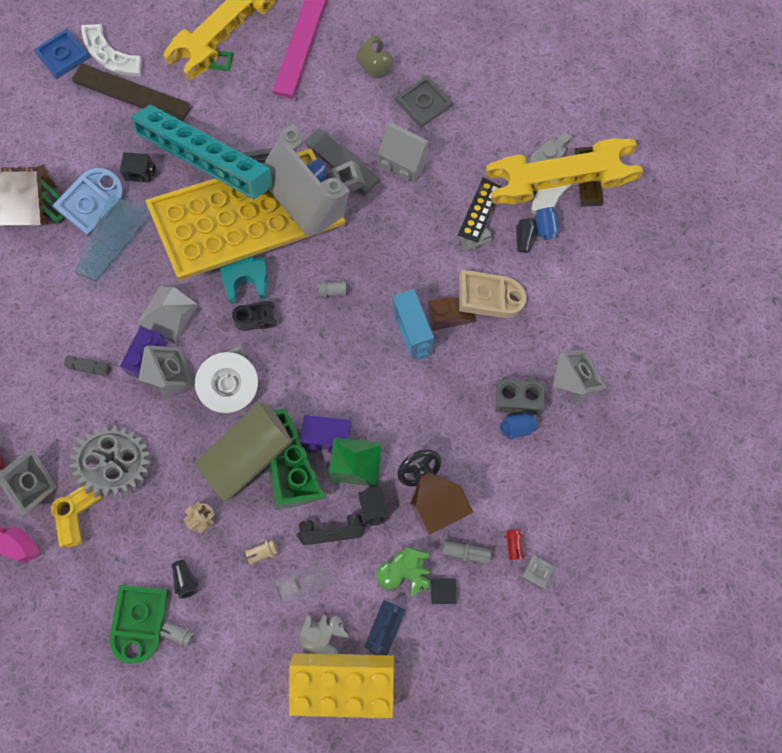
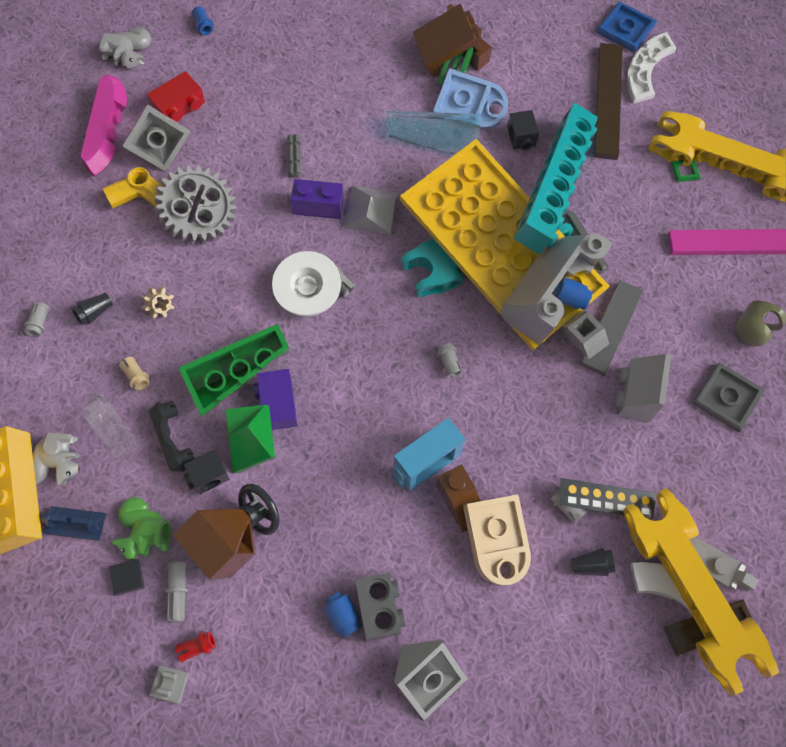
camera: 70 degrees right, 5 degrees down
(137, 620) = (44, 281): green tile -> none
(166, 369) = (305, 223): light grey slope -> none
(244, 451) = (232, 319): olive slope -> none
(256, 316) = (393, 293): black piece -> none
(547, 223) = (619, 586): blue brick -> none

